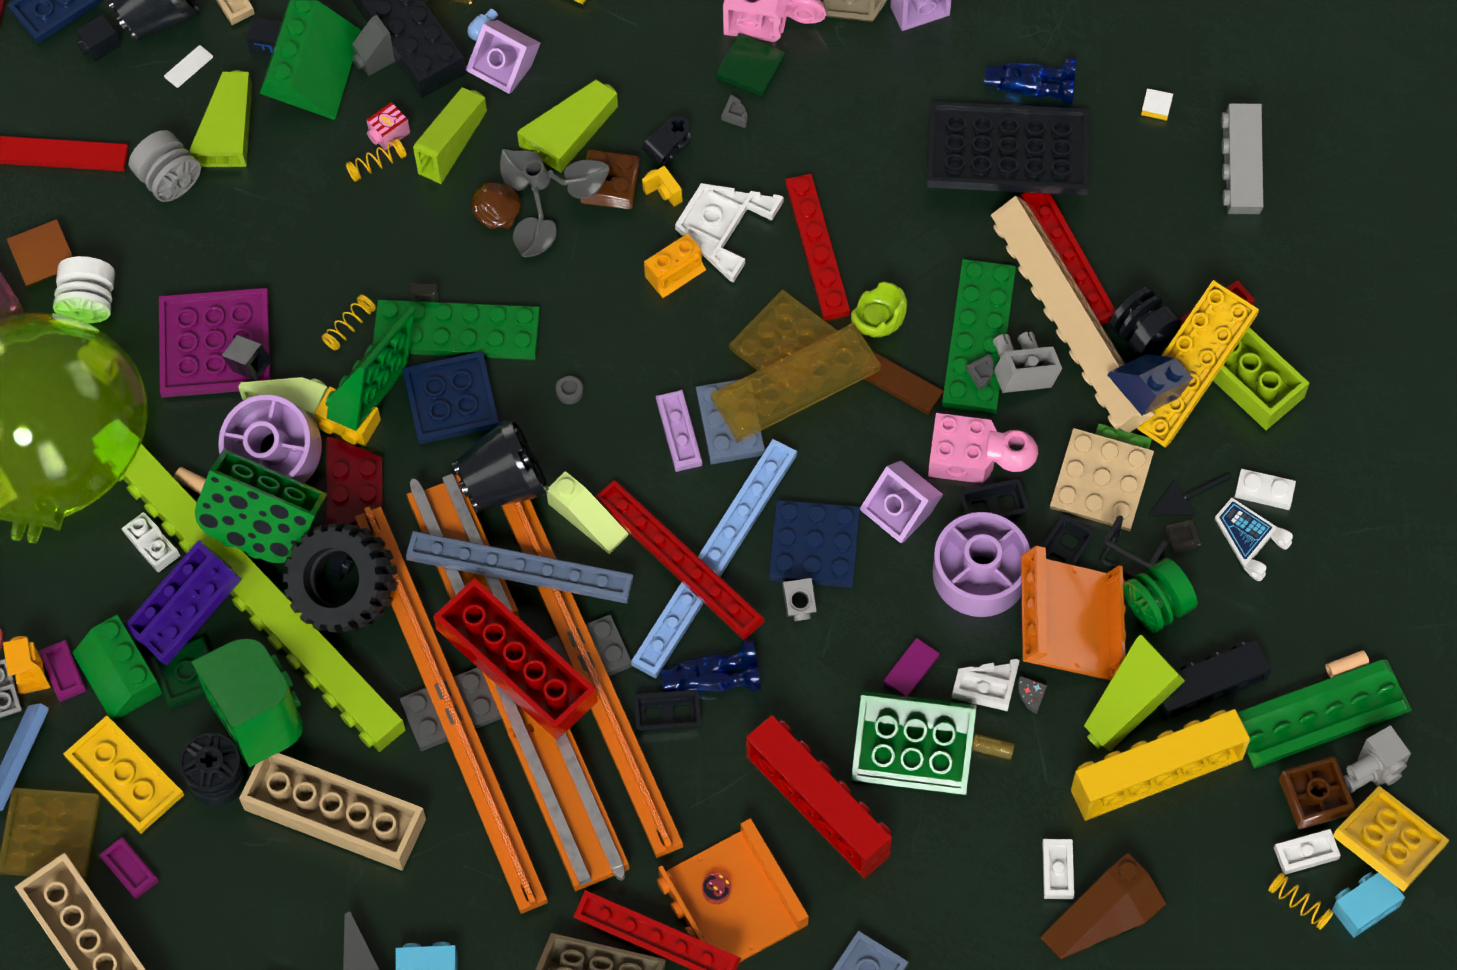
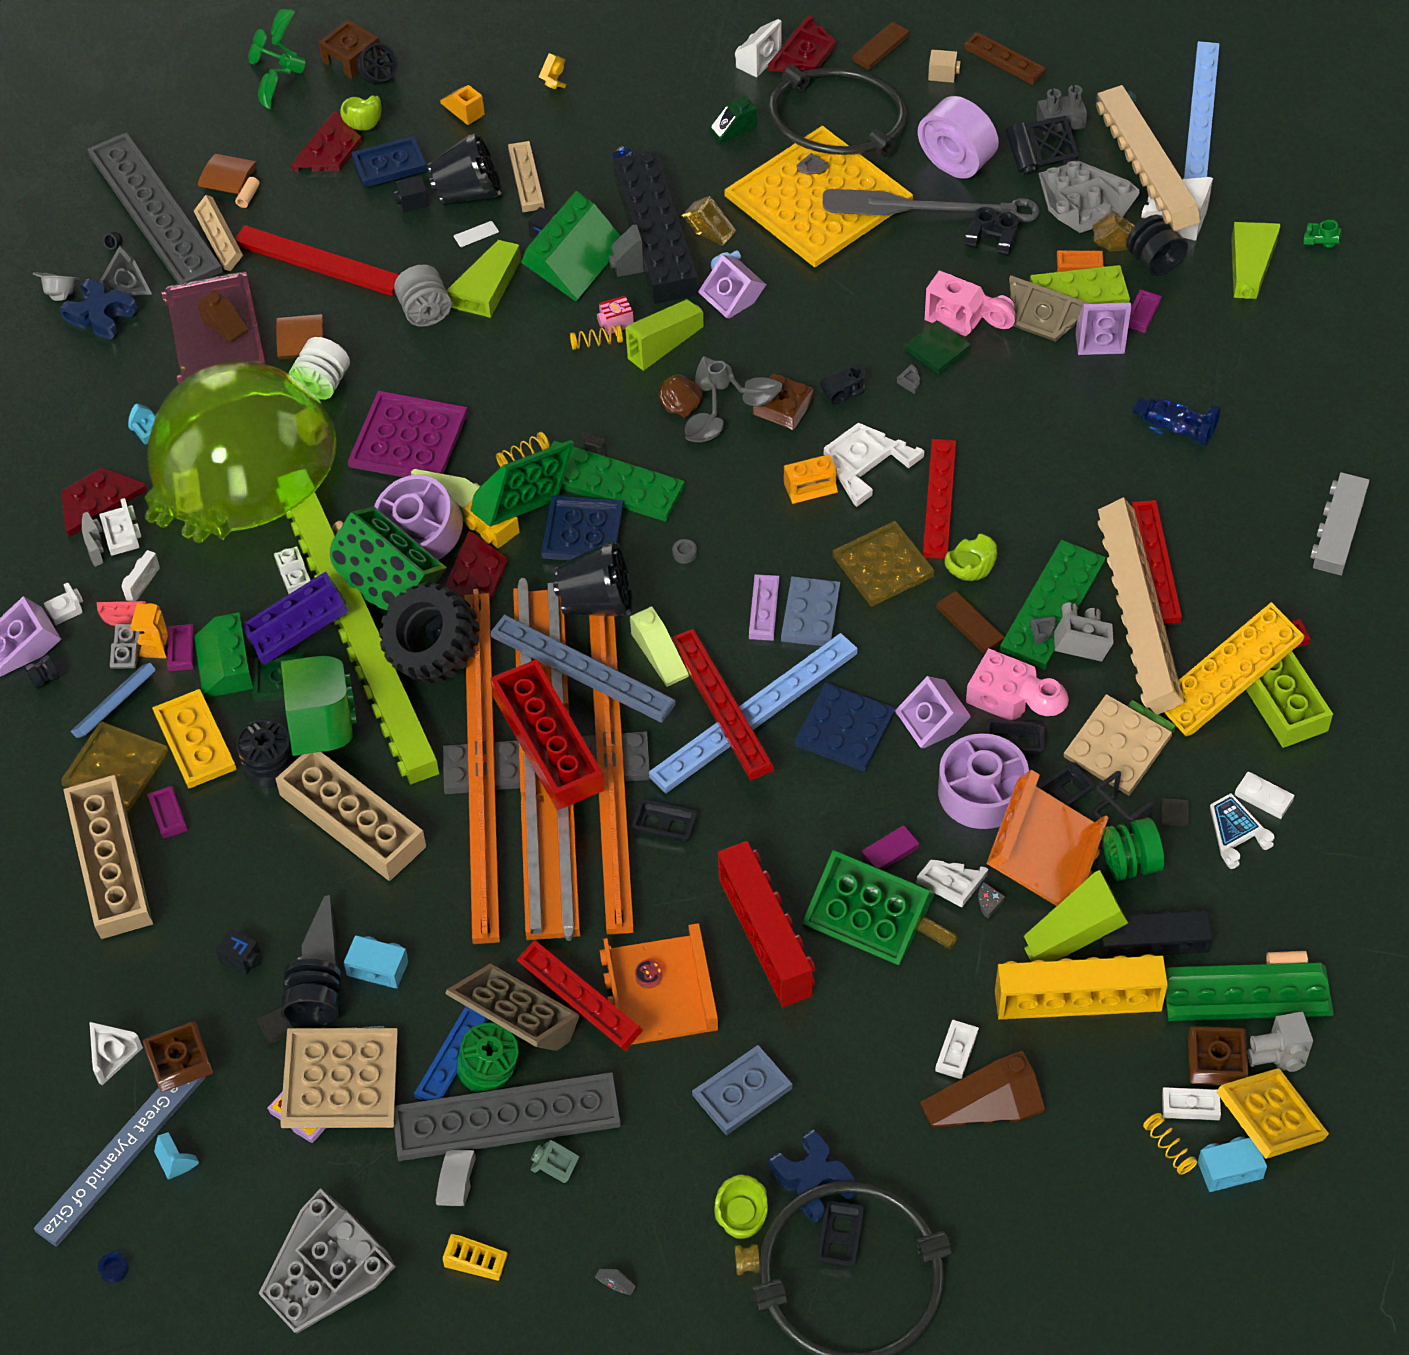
camera: 20 degrees right, 10 degrees down
(246, 357) = (426, 450): black brick -> none
(569, 125) = (766, 351): lime slope -> none
(665, 183) = (825, 412): yellow bracket -> none
(708, 674) = (714, 802): clear blue piece -> none
(795, 382) = (877, 594): clear yellow plate -> none
(799, 586) = (808, 753): light grey brick -> none
(1008, 148) = (1134, 463): black plate -> none
(1145, 322) = (1200, 627): black wheel -> none
(1151, 381) = (1187, 672): dark blue slope -> none
(1157, 104) = (1280, 465): white tile -> none
(1176, 503) = (1179, 784): black piece -> none

